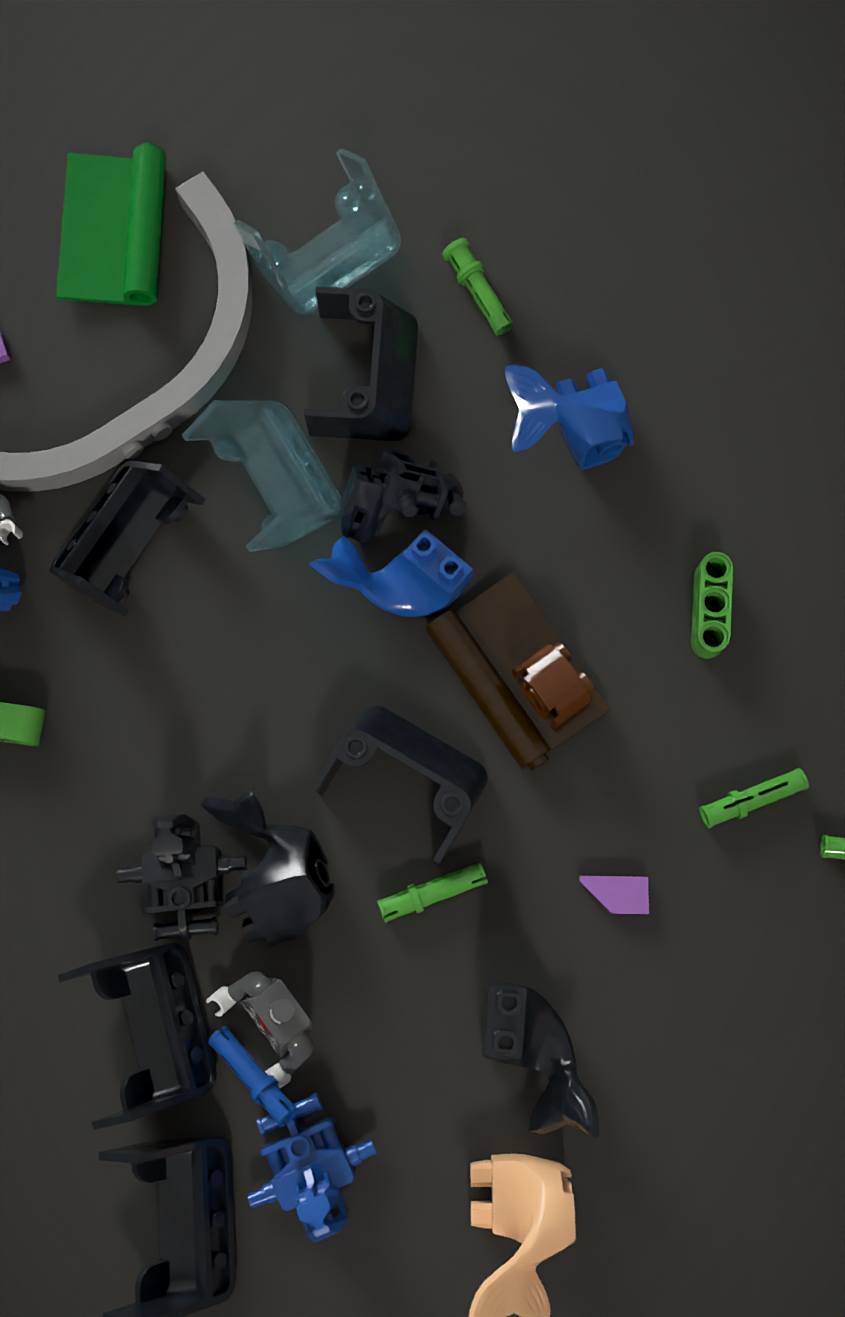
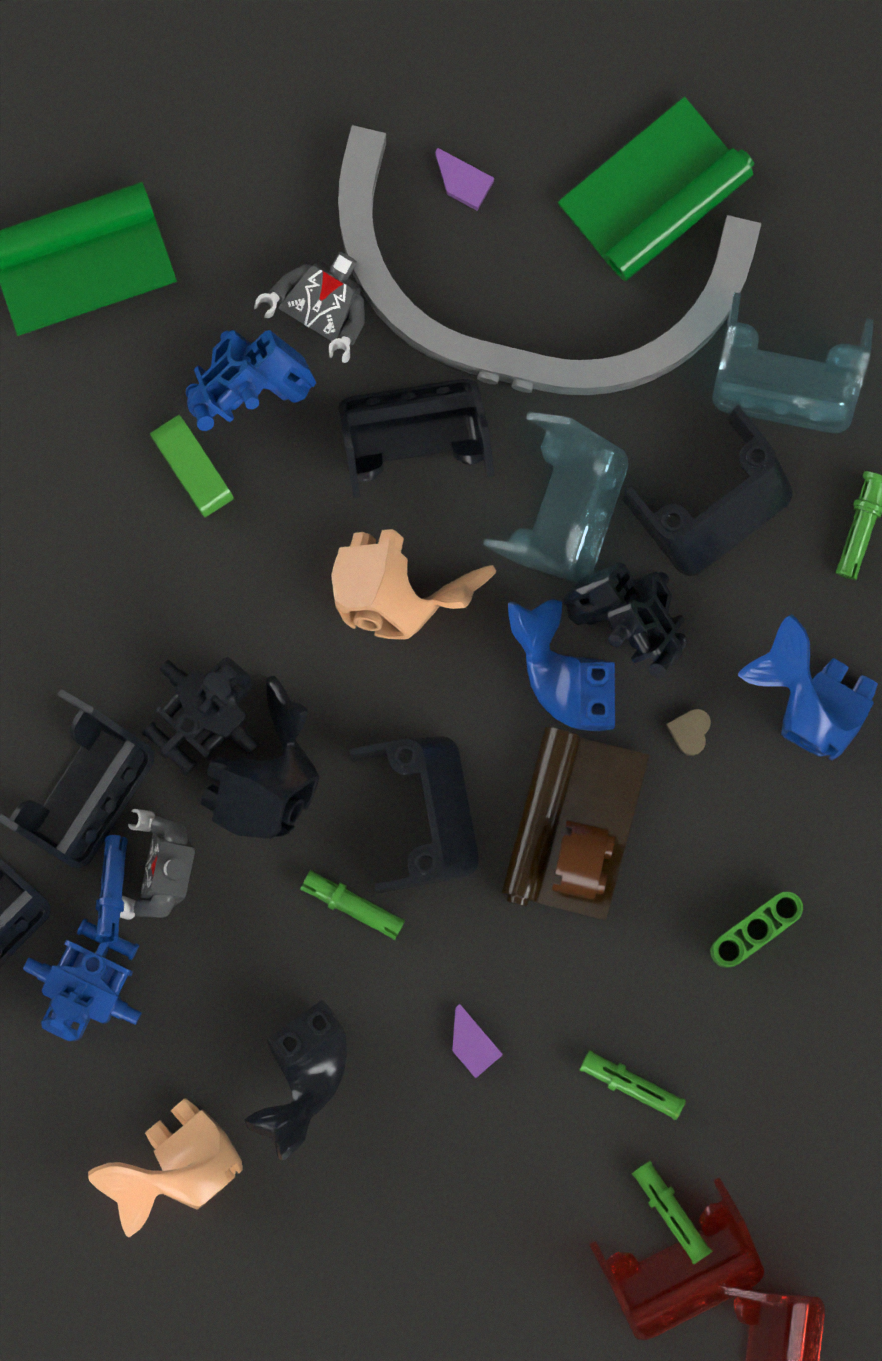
camera: 45 degrees right, 5 degrees up
(215, 664) = (376, 593): none -> light nougat hips
(520, 529) = (690, 731): none -> dark tan tile

